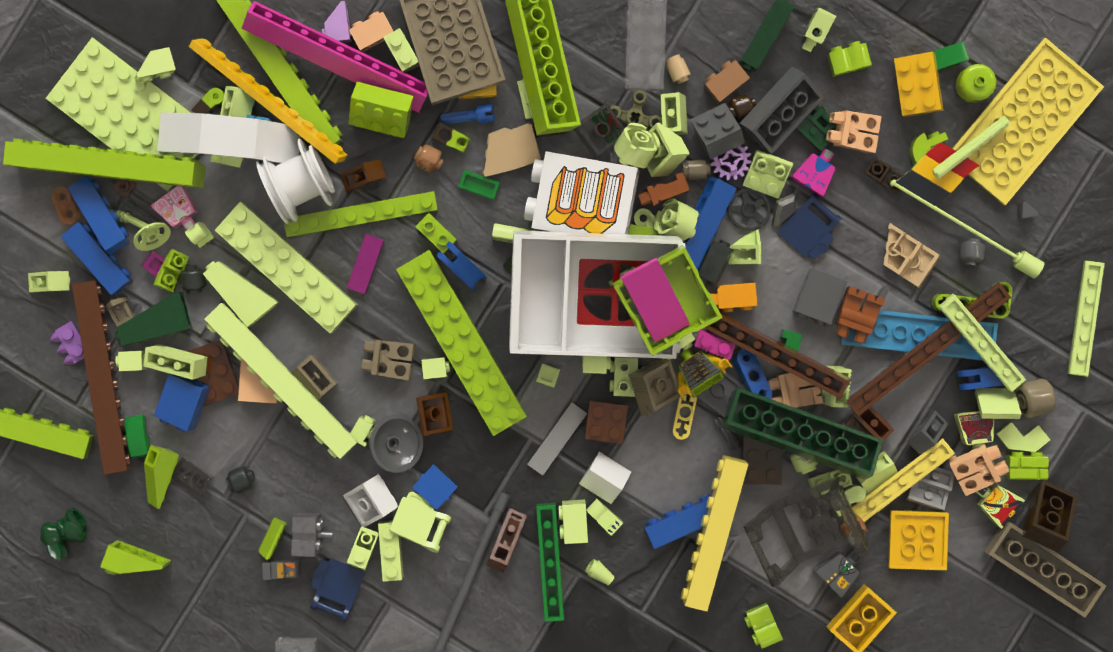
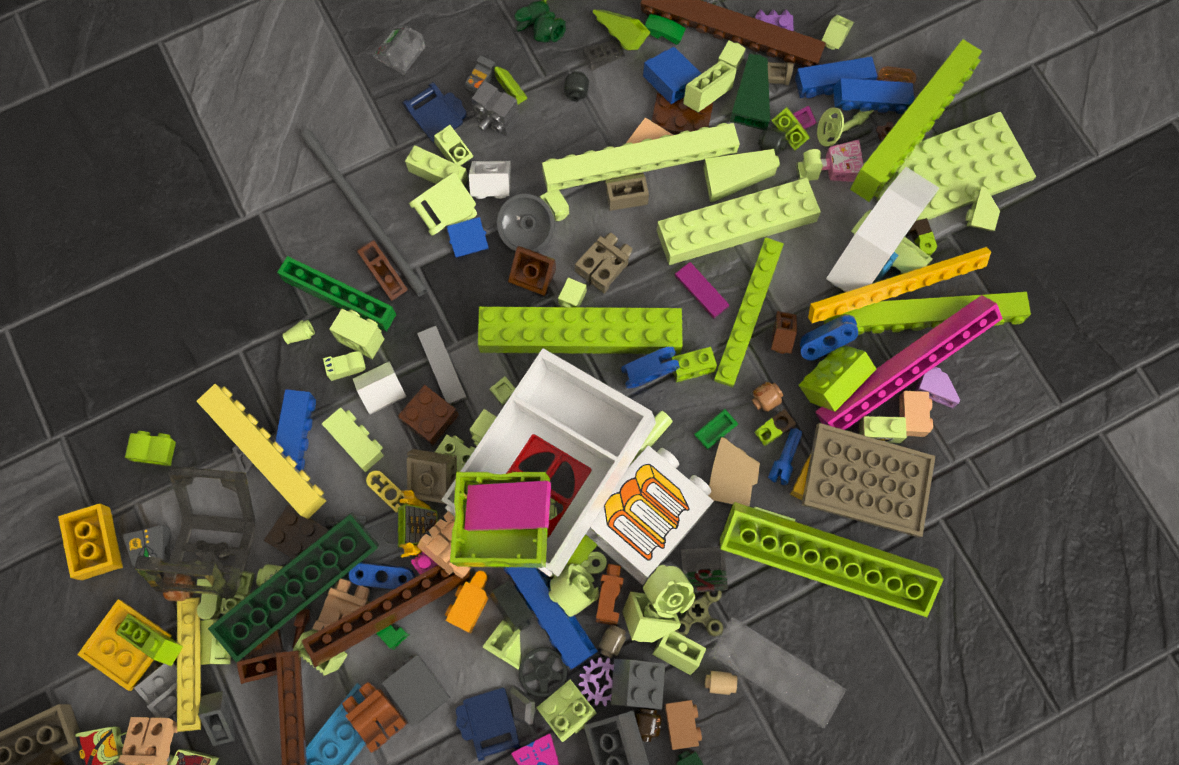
camera: 115 degrees right, 15 degrees down
(199, 541) = (545, 26): none -> dark green animal
(296, 181) = (813, 262): white wheel -> none
(350, 135) = (815, 345): none -> blue piece
(659, 469) = (354, 438): none -> yellowish green brick
(703, 342) = (437, 545): none -> light nougat hips
(831, 412) = (301, 620): none -> copper bar
(905, 521) = (149, 640): none -> lime slope

